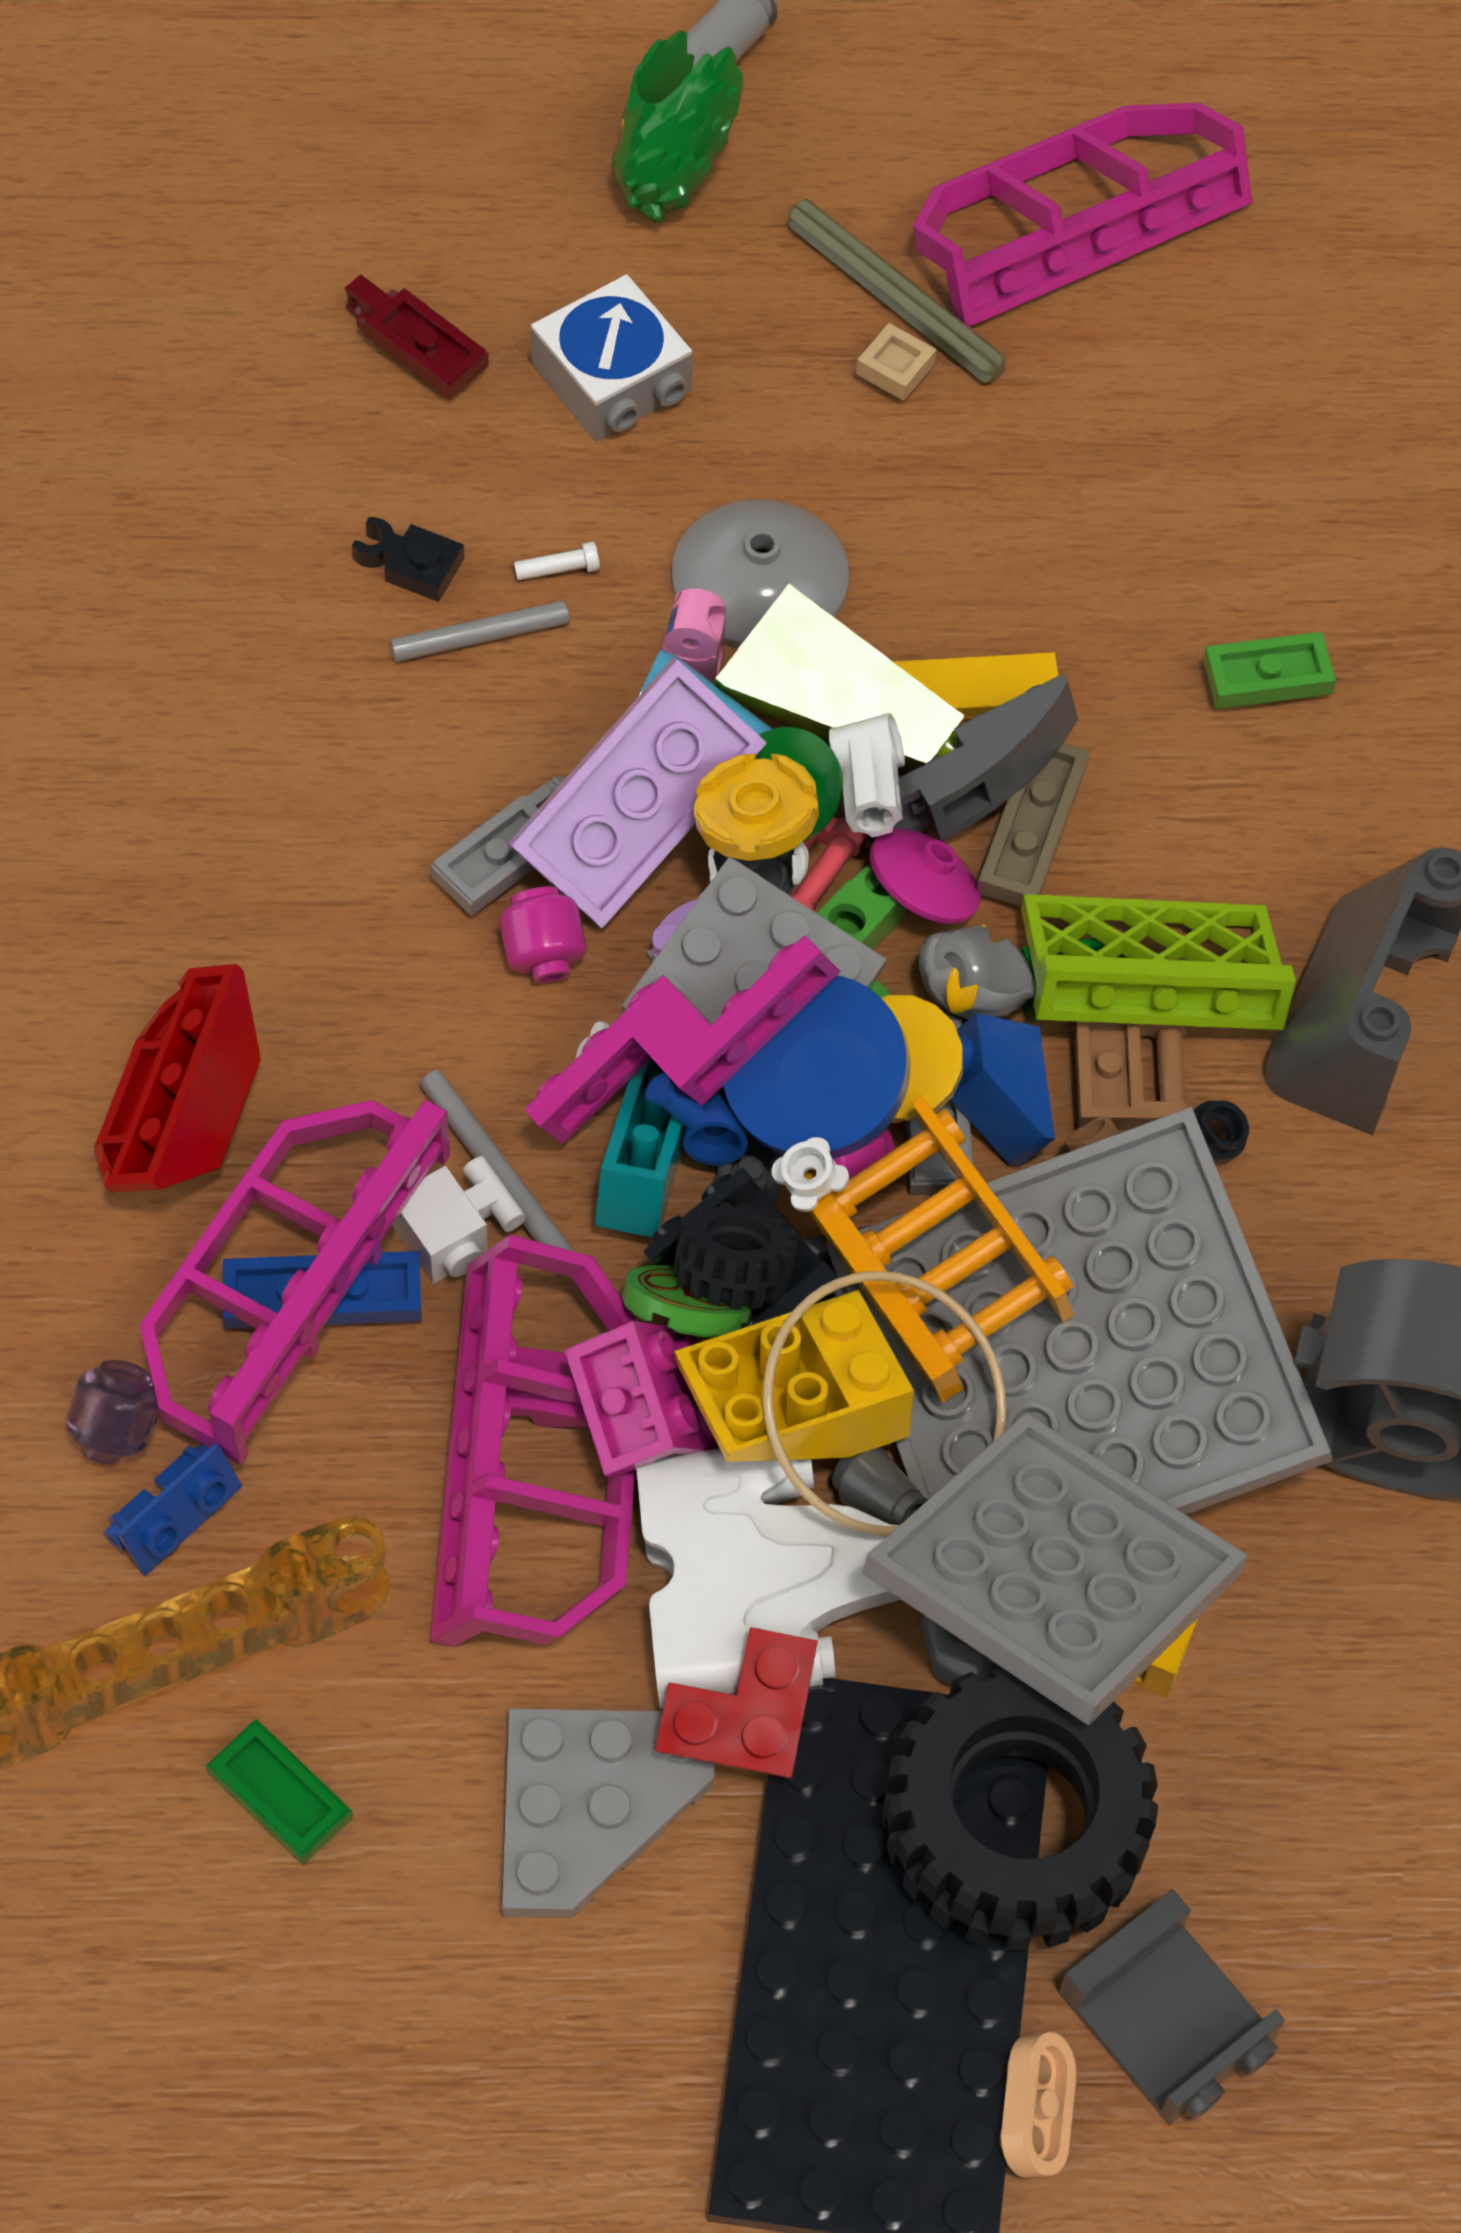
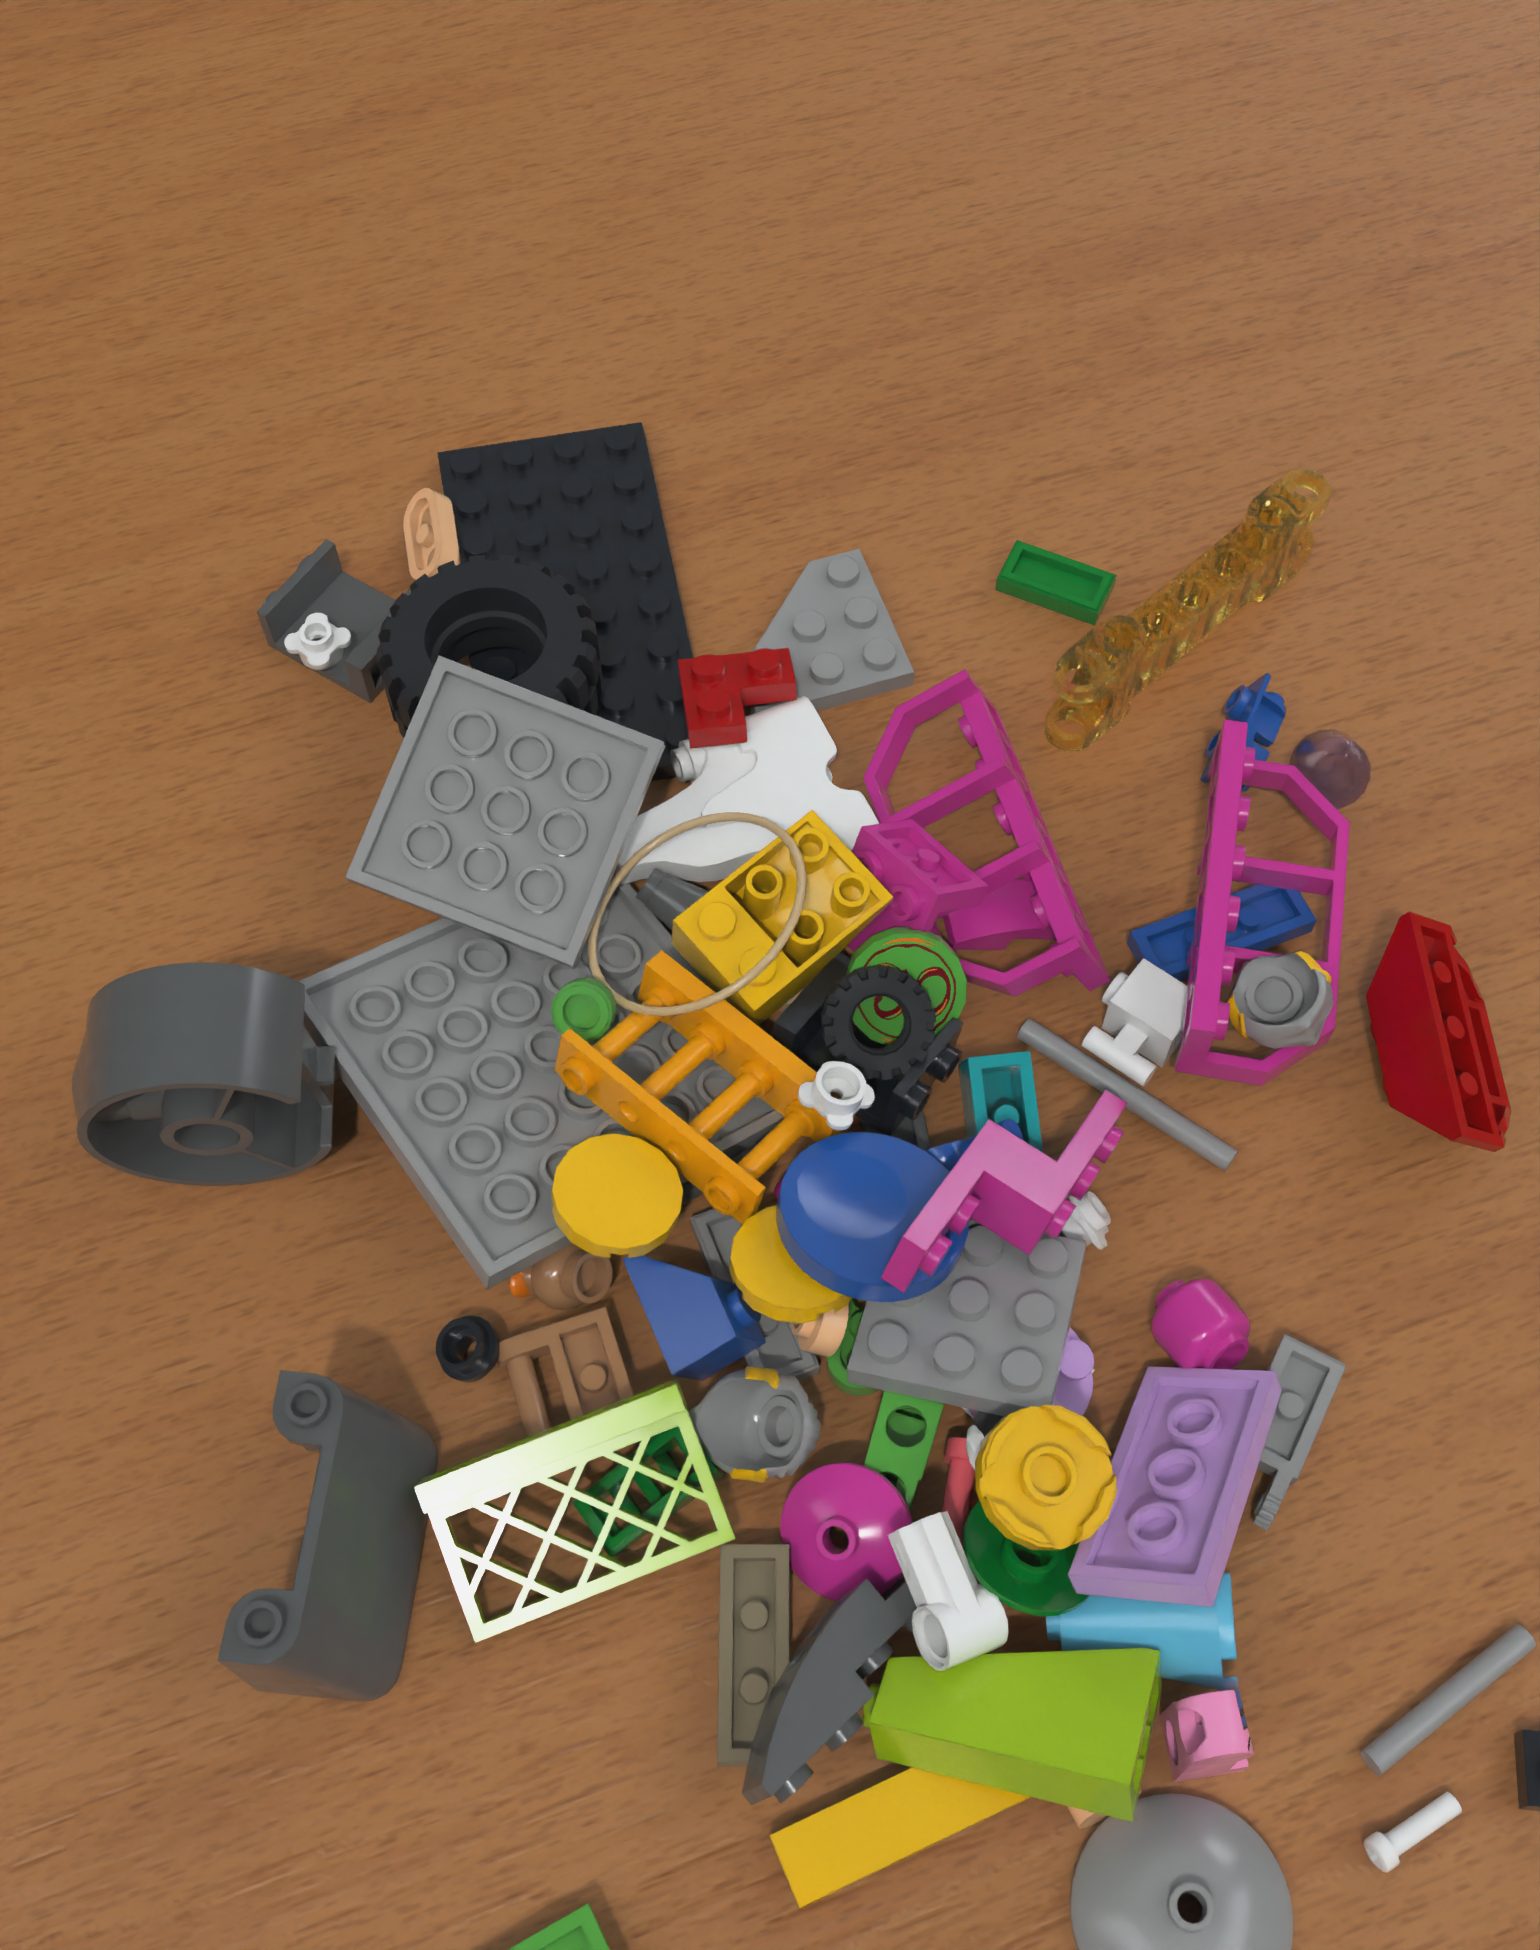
camera: 165 degrees right, 0 degrees up
(333, 1132) = (1281, 1000): none -> light grey hair
(1028, 1353) = (585, 1008): none -> bright green tile
(1050, 1157) = (616, 1196): none -> yellow tile
(1209, 2004) = (320, 653): none -> white plate

